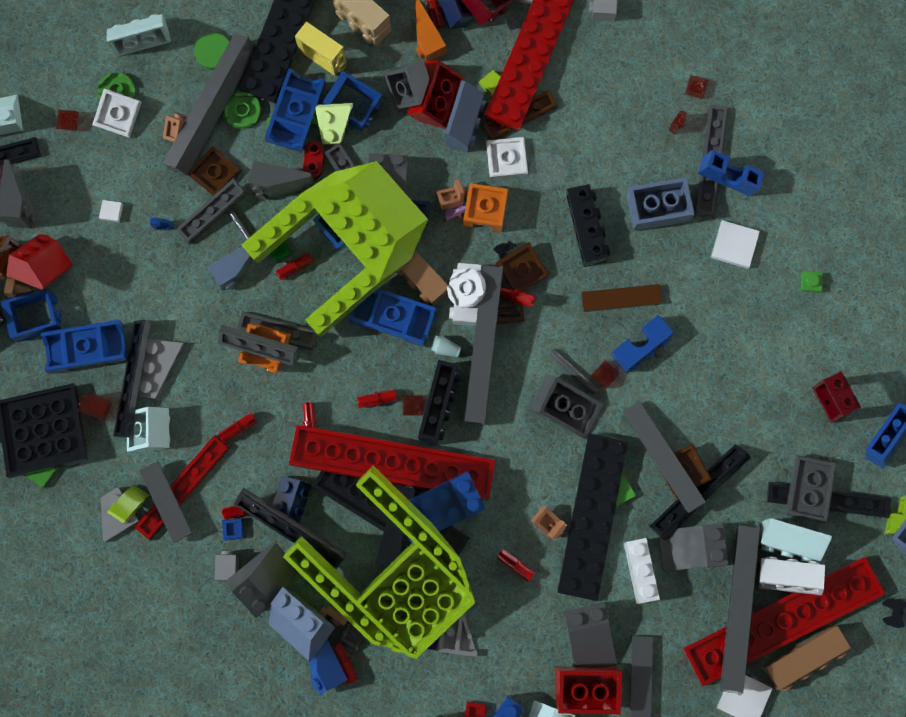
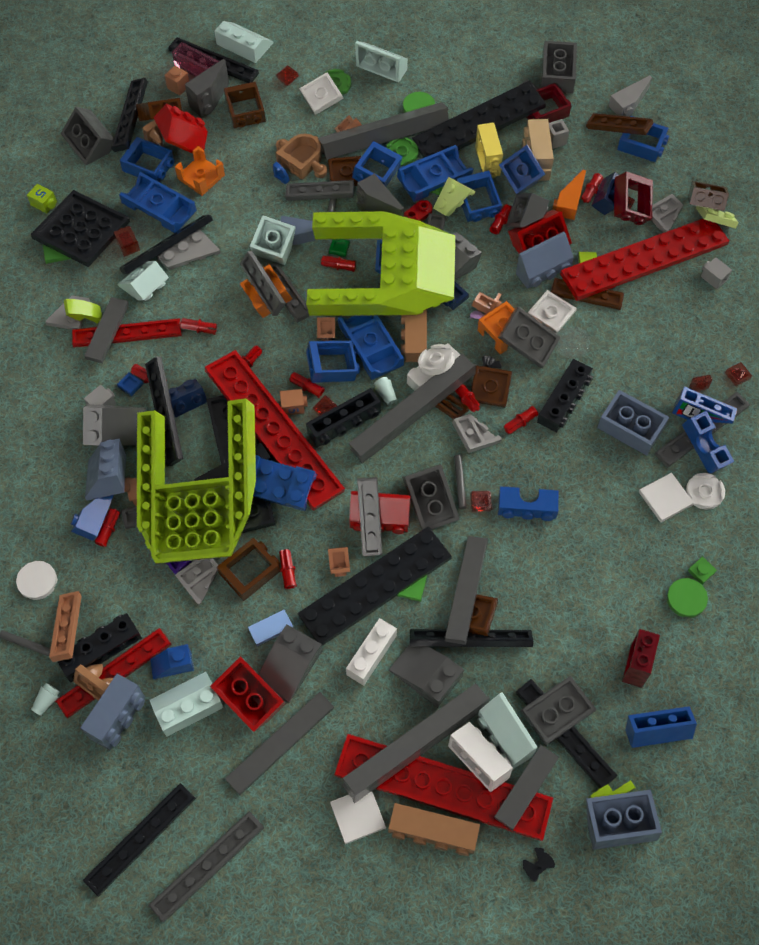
camera: 40 degrees right, 15 degrees down
(46, 173) = (249, 91): none -> reddish brown window
(90, 285) = (200, 173): none -> orange panel
(110, 211) = (258, 144): white tile -> none
(161, 191) = (301, 155): none -> medium nougat piece
(223, 295) = (273, 240): none -> light aqua slope
(238, 130) = (382, 155): none -> blue window
(346, 337) = (326, 328): none -> nougat bracket
(369, 47) = (522, 170): none -> blue slope
(370, 377) = (318, 348): none -> blue window
(383, 424) = (293, 401): none -> nougat brick
(388, 106) = (500, 219): none -> red axle
(486, 614) = (246, 591): none -> reddish brown window
(516, 200) = (529, 337): none -> dark grey tile
(543, 468) = (369, 516): none -> dark grey tile
(544, 457) = (393, 512): none -> red slope
(547, 321) = (474, 434): none -> light grey wing
(547, 622) = (269, 627): none -> light blue tile
(571, 277) = (521, 420): none -> red axle
(621, 298) = (544, 463): reddish brown tile -> none
(693, 147) = (693, 403): none -> blue slope
(755, 217) = (705, 491): none -> white tile
(819, 314) = (687, 597): none -> bright green tile
(843, 568) = (526, 787): none -> dark grey tile

